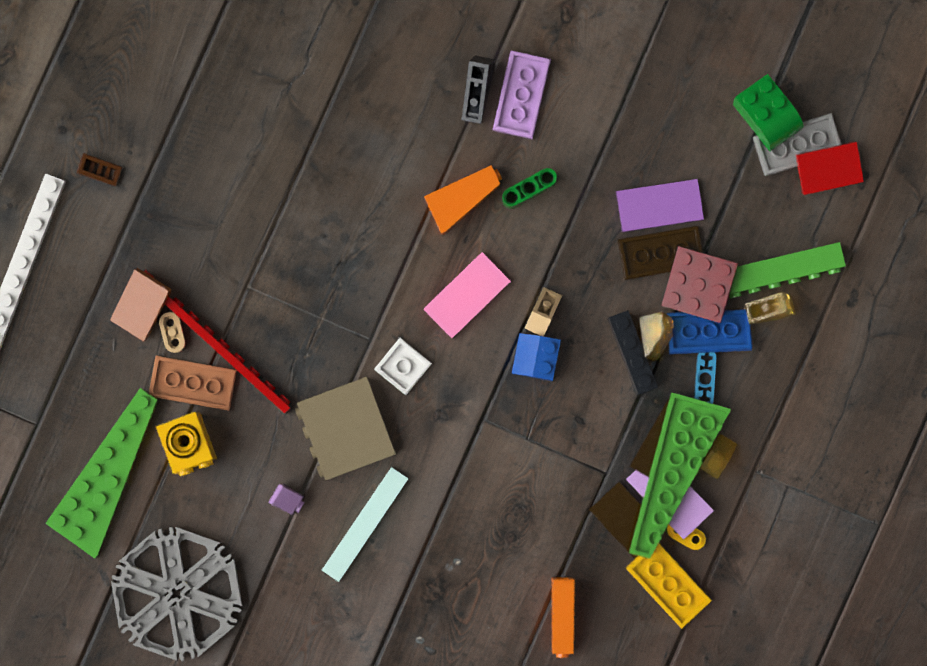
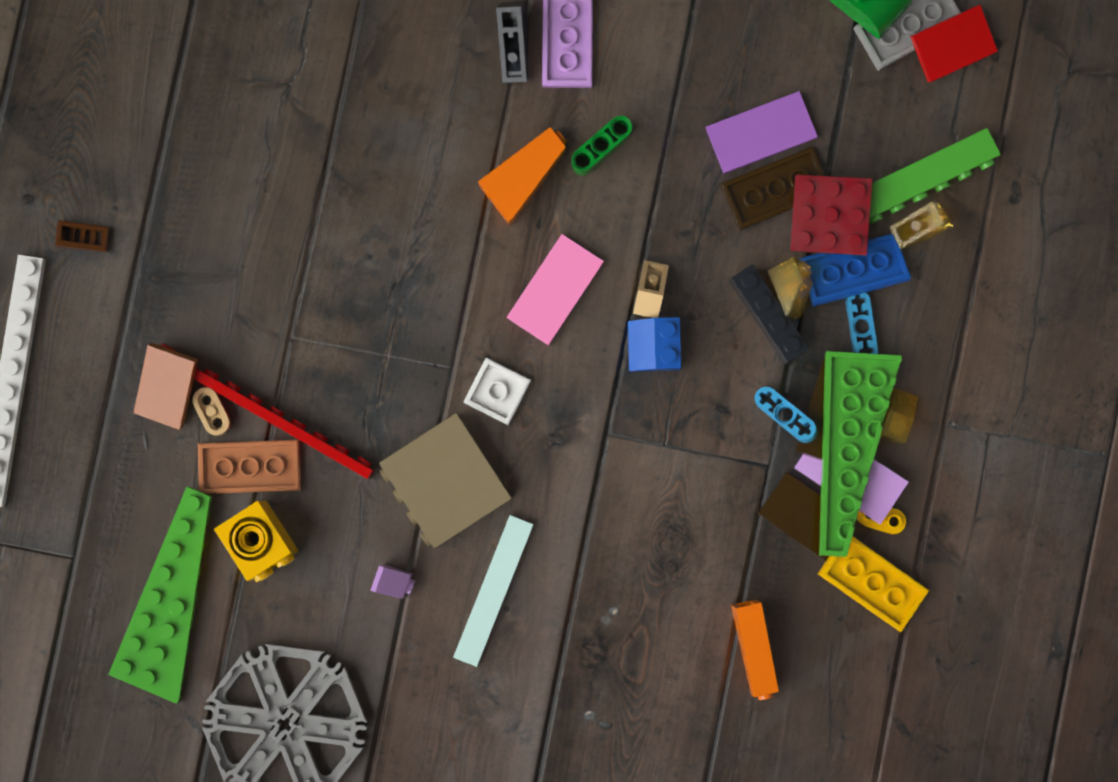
camera: 10 degrees left, 0 degrees up
(642, 444) = (795, 431): none -> dark azure beam

